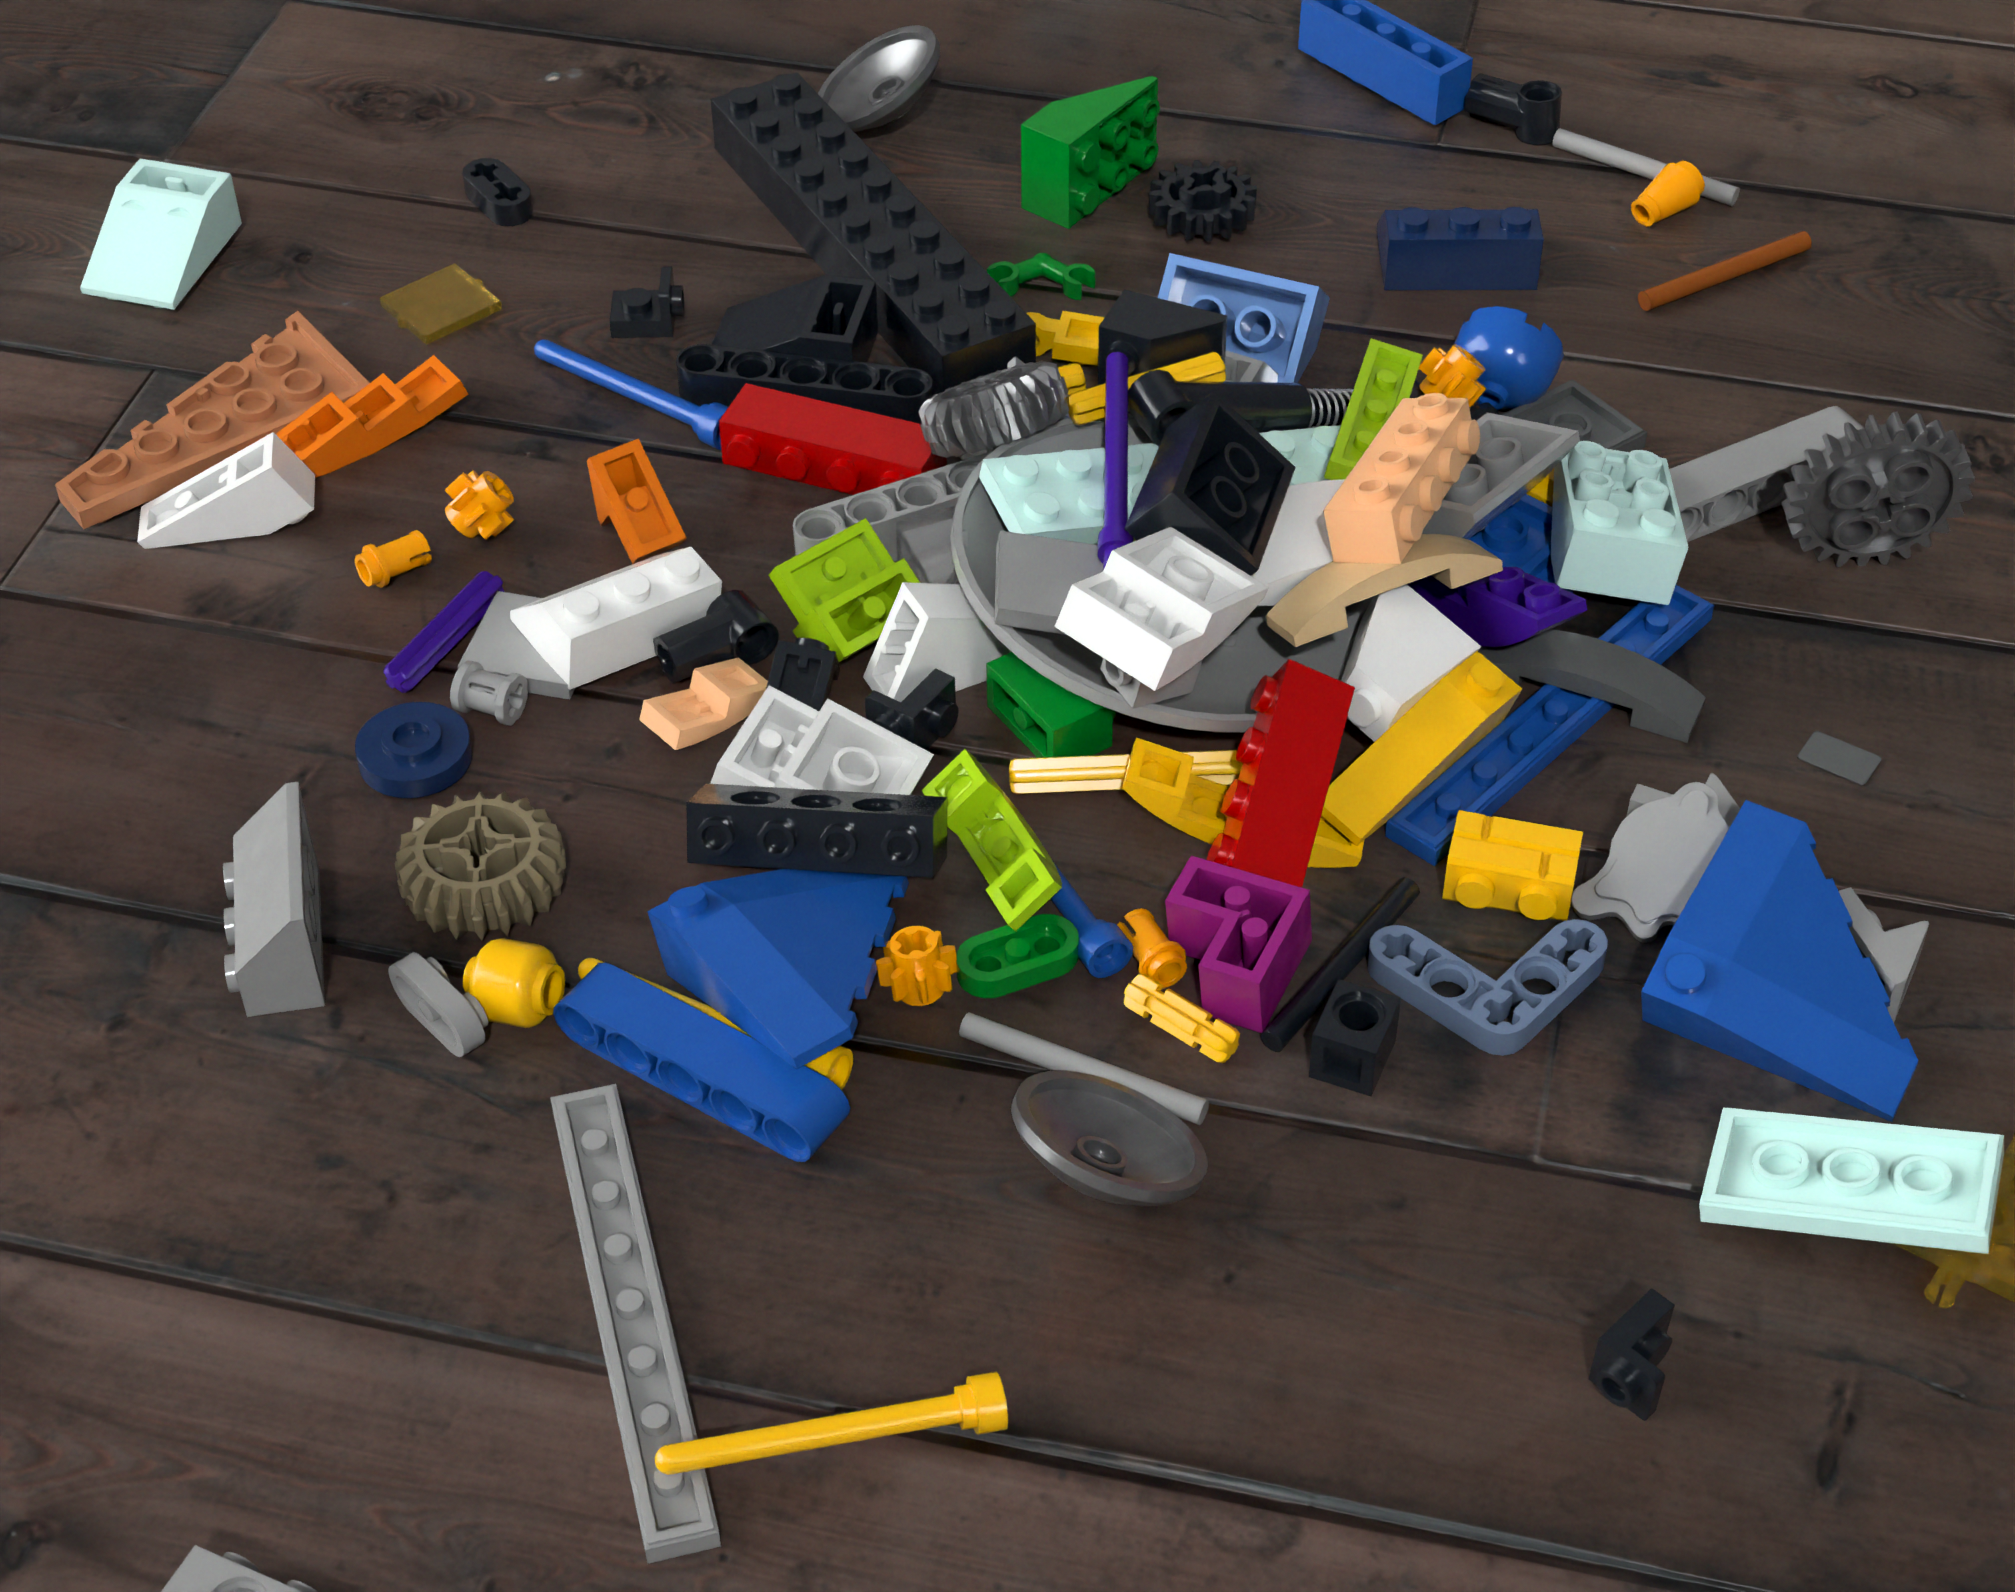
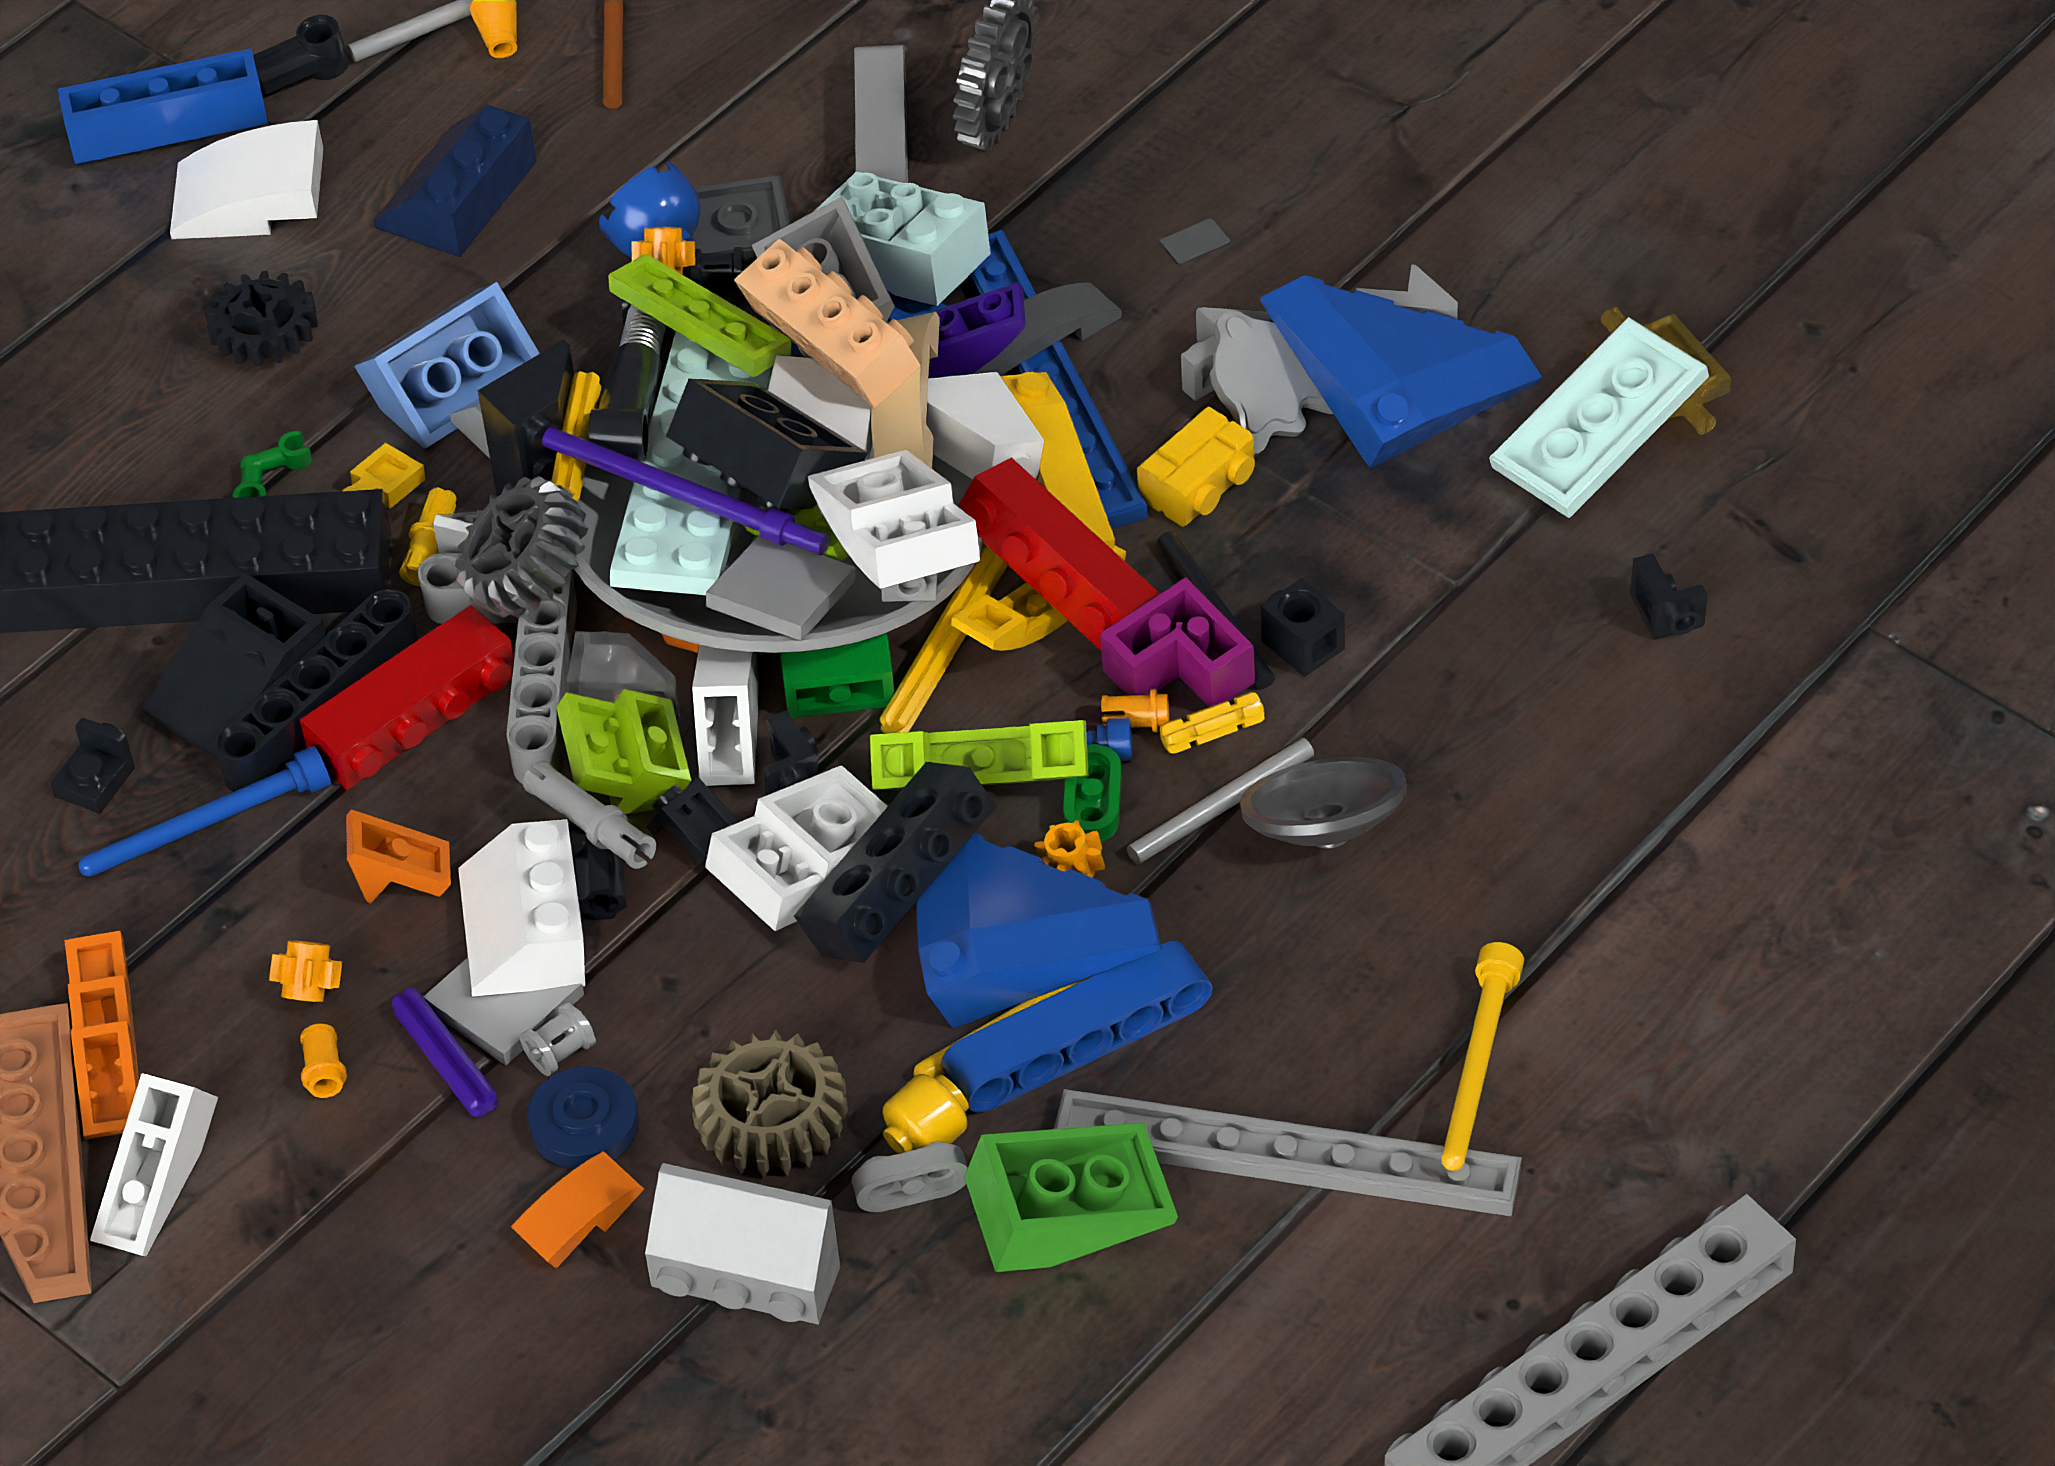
camera: 60 degrees left, 5 degrees up
(326, 784) = (573, 1206): none -> orange slope
(462, 1128) = (1065, 1192): none -> bright green slope
(715, 701) = (669, 899): light nougat slope -> none
(725, 604) = (604, 825): none -> light grey pin
(1087, 149) = (153, 367): green slope -> none
(1354, 138) = (249, 182): none -> white slope
(1483, 996) = (1301, 541): sand blue beam -> none

